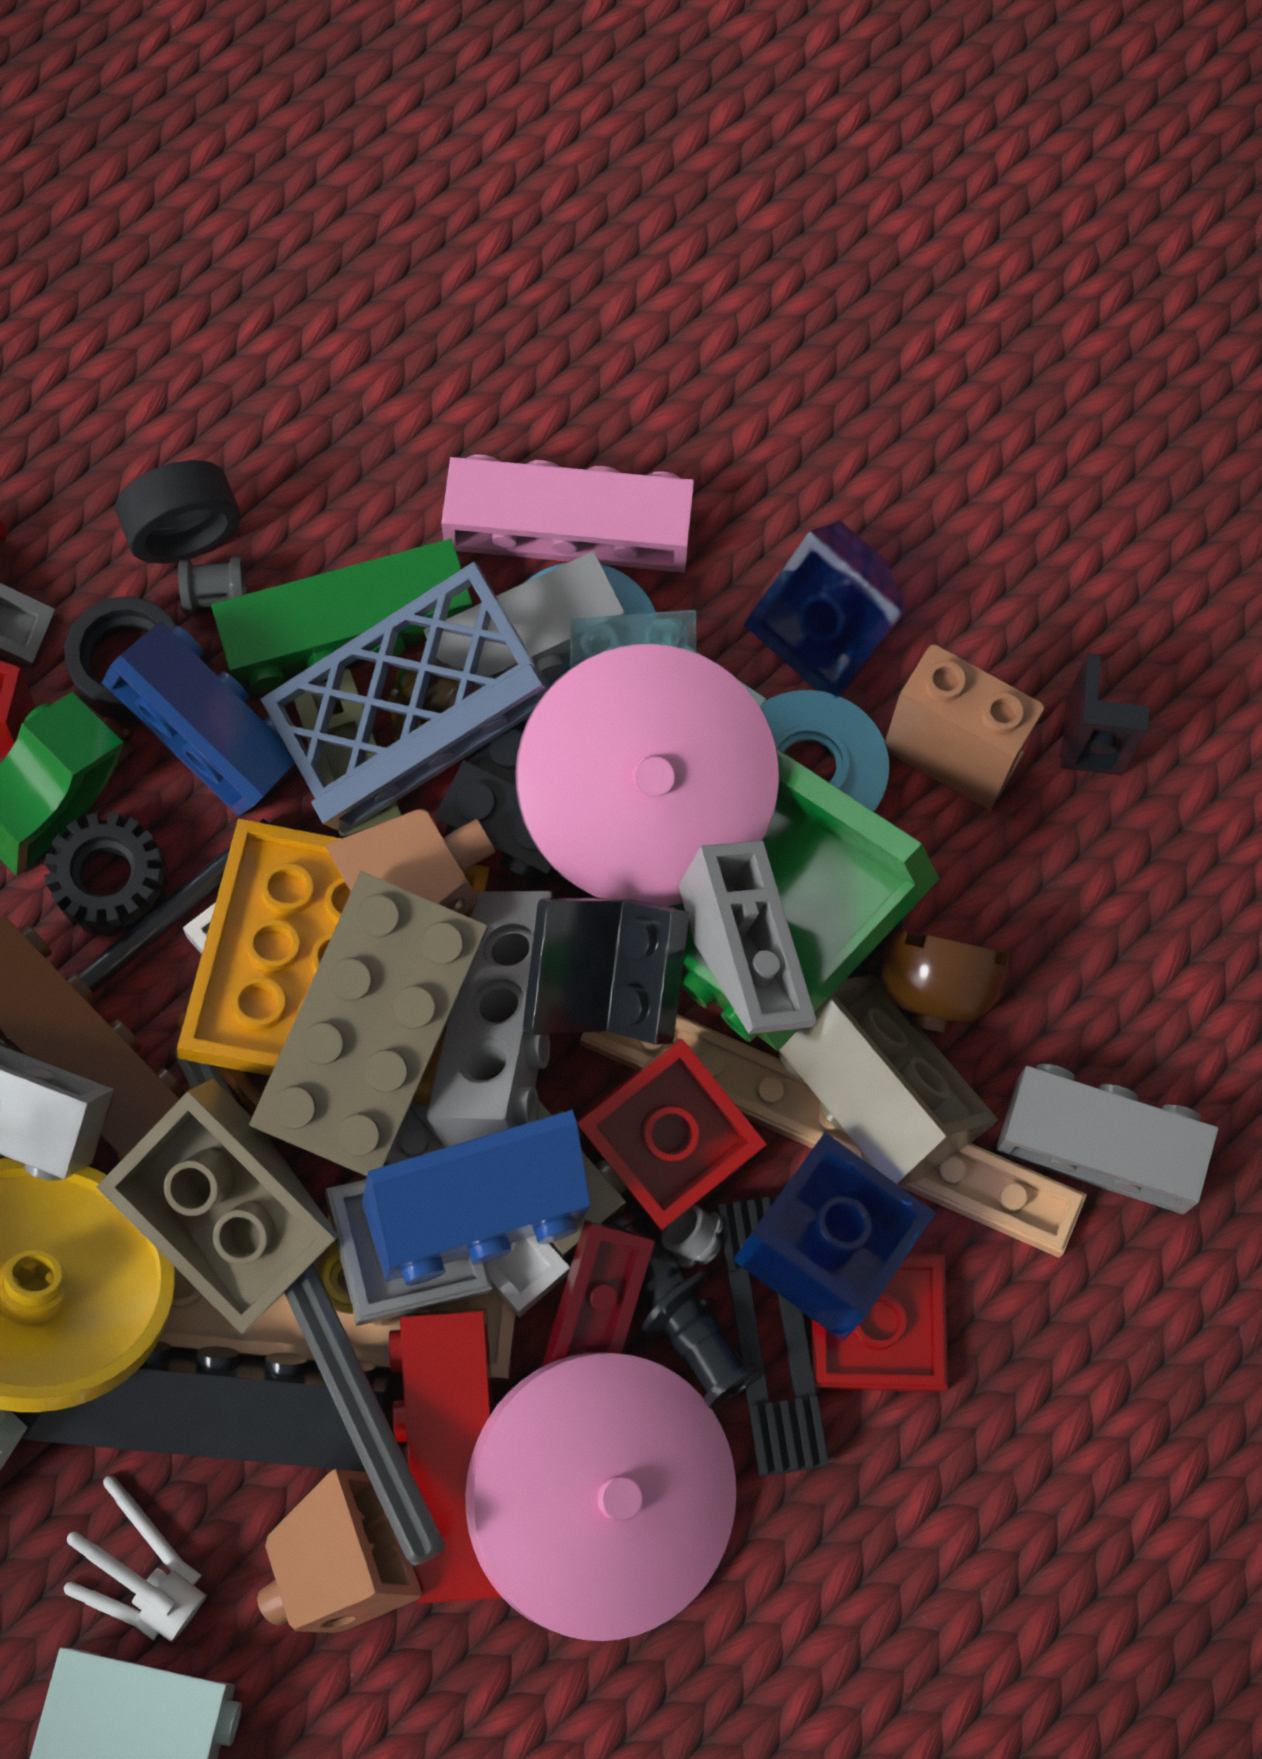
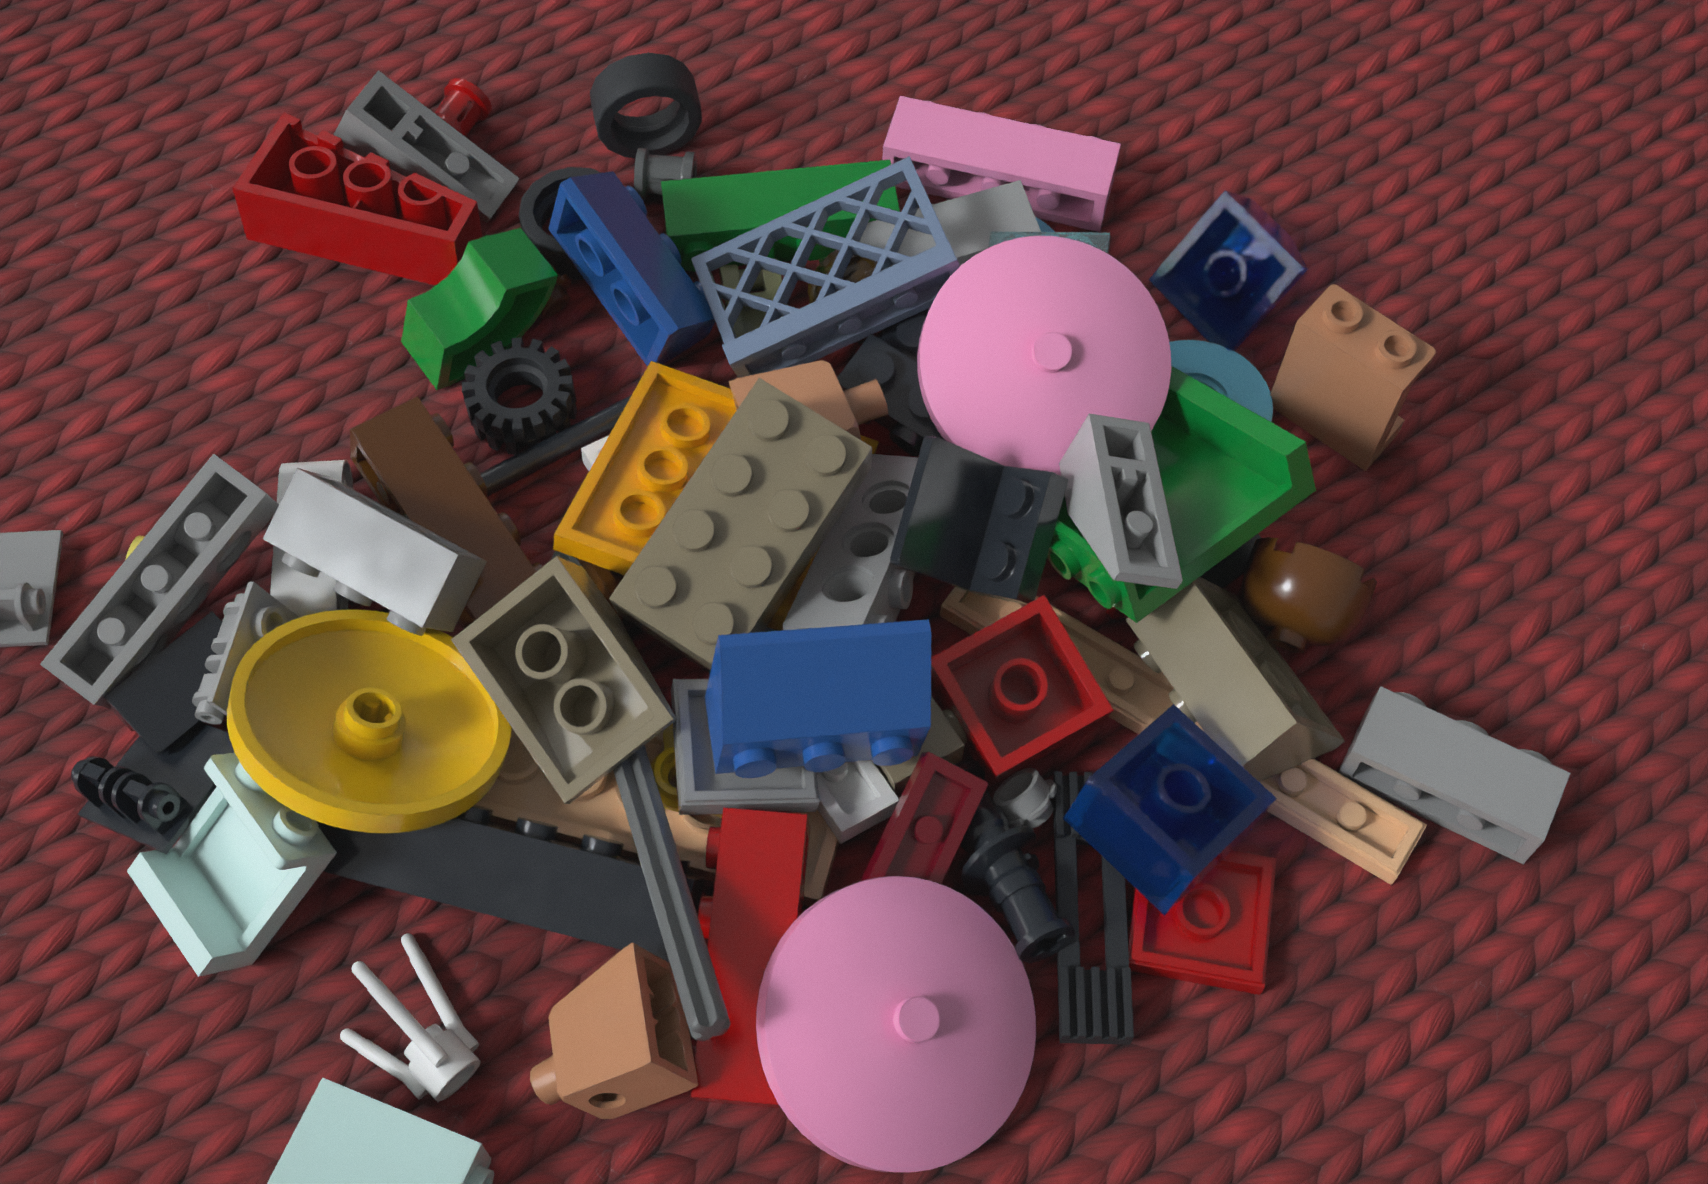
camera: 10 degrees right, 10 degrees down
(1097, 732) = (1484, 400): black panel -> none

